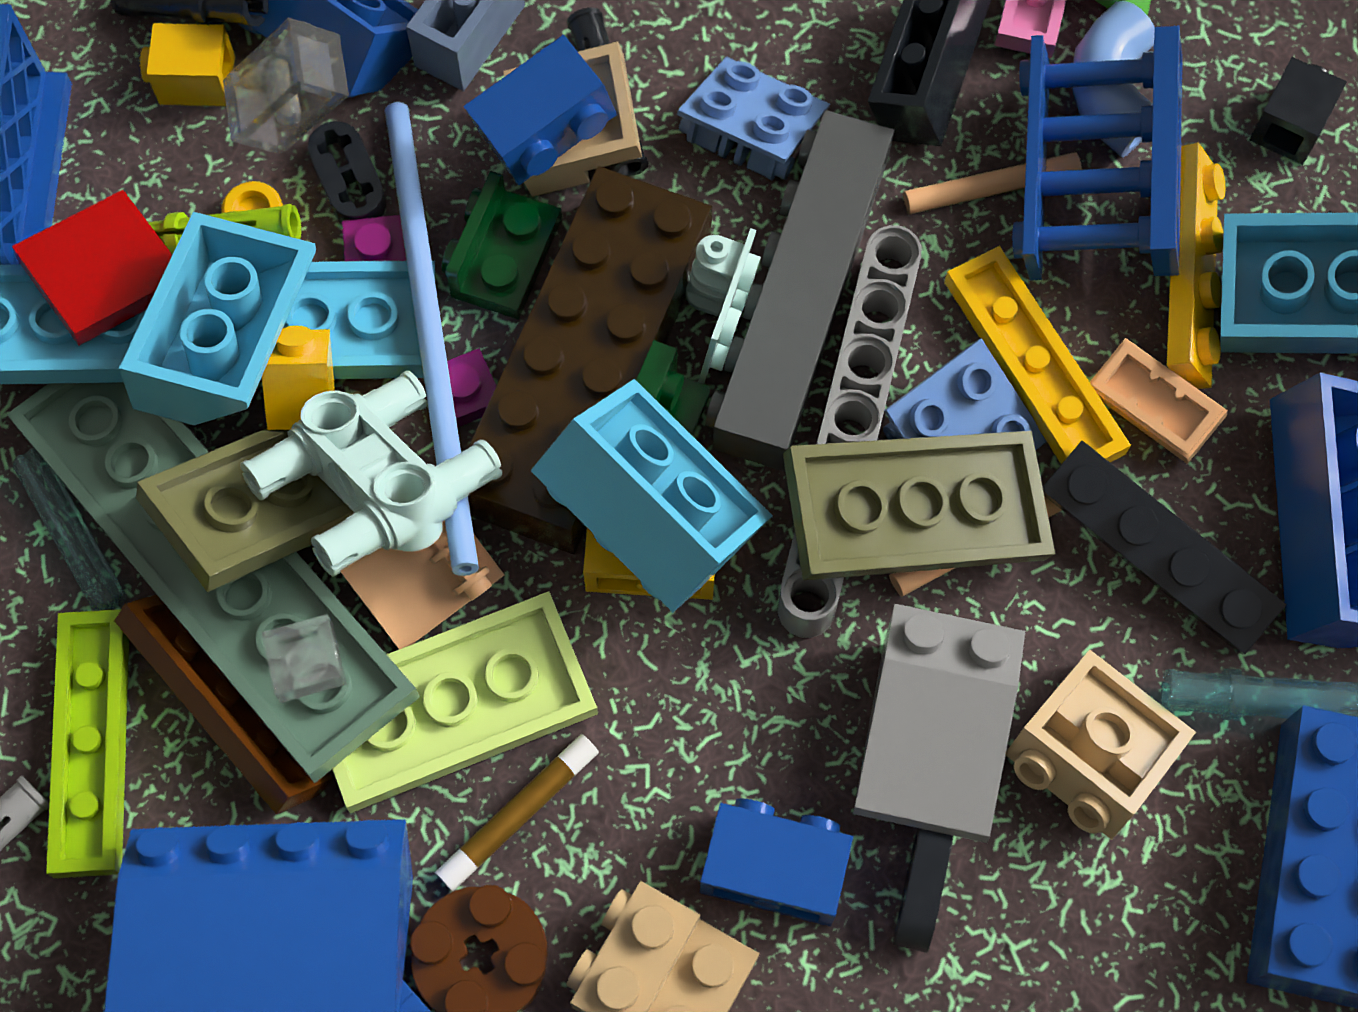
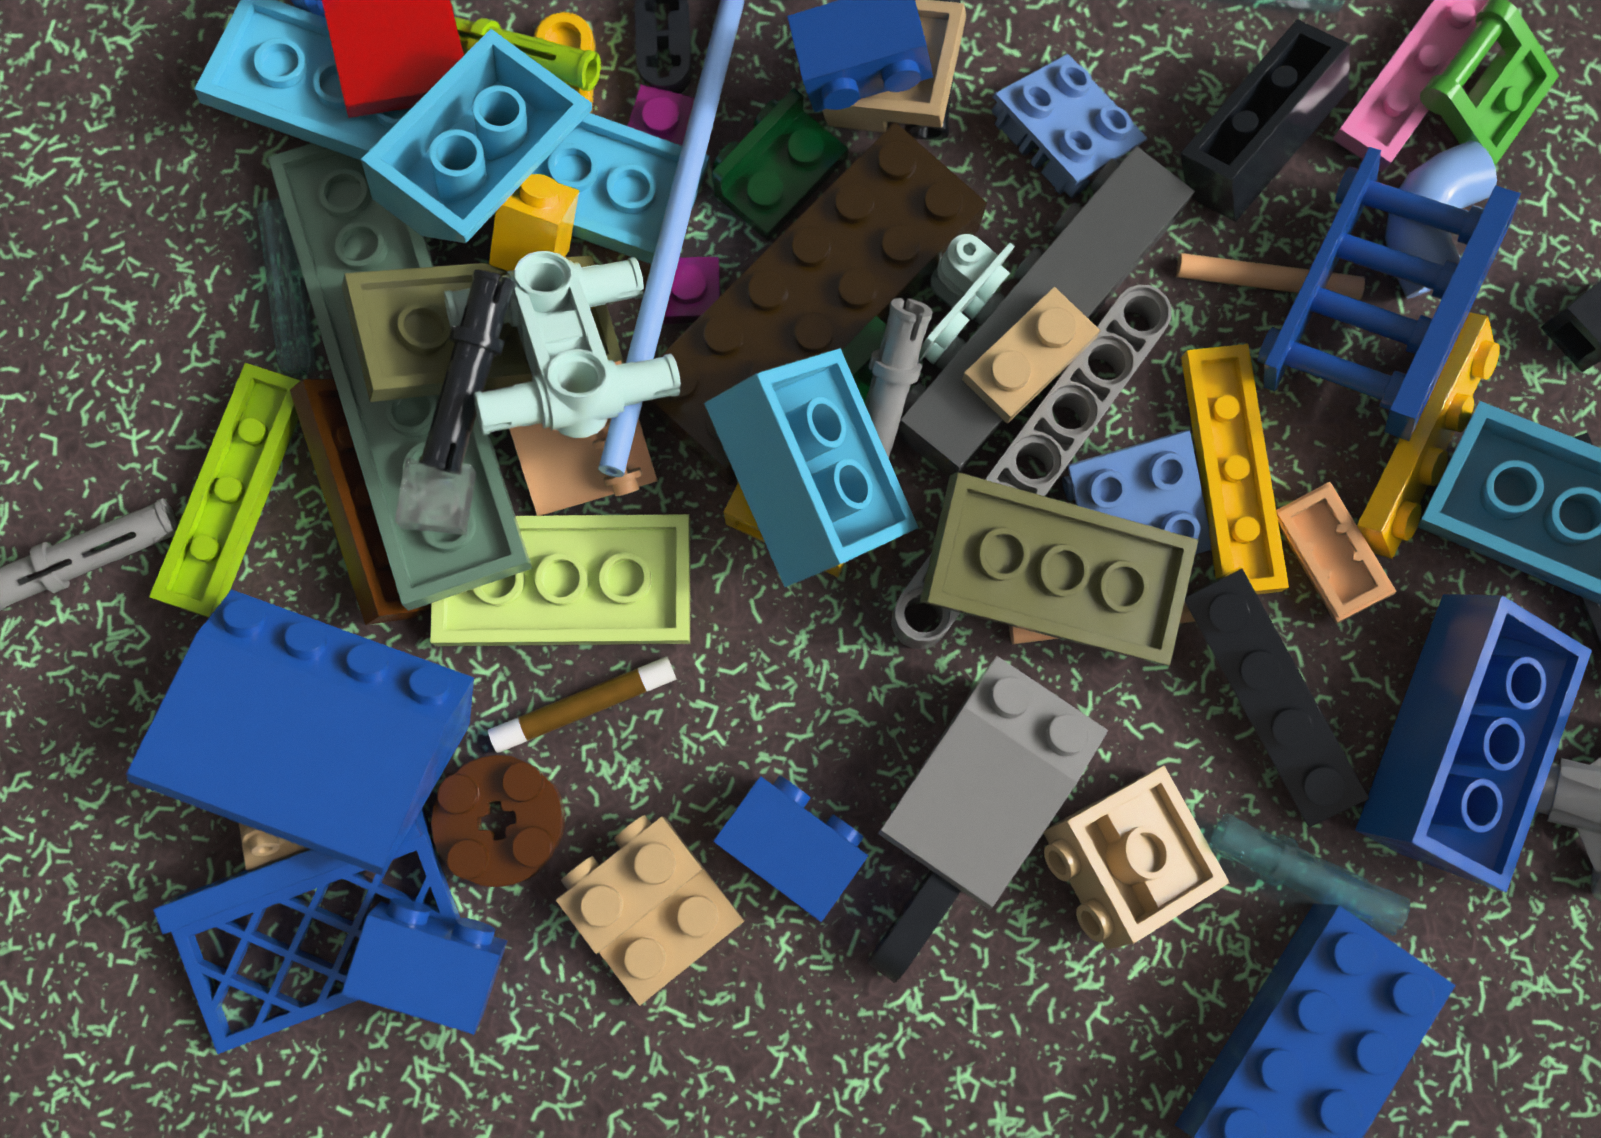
camera: 20 degrees right, 10 degrees up
(292, 503) = (467, 371): none -> black pin
(692, 375) = (896, 366): none -> light grey pin
(809, 324) = (1030, 355): none -> tan plate

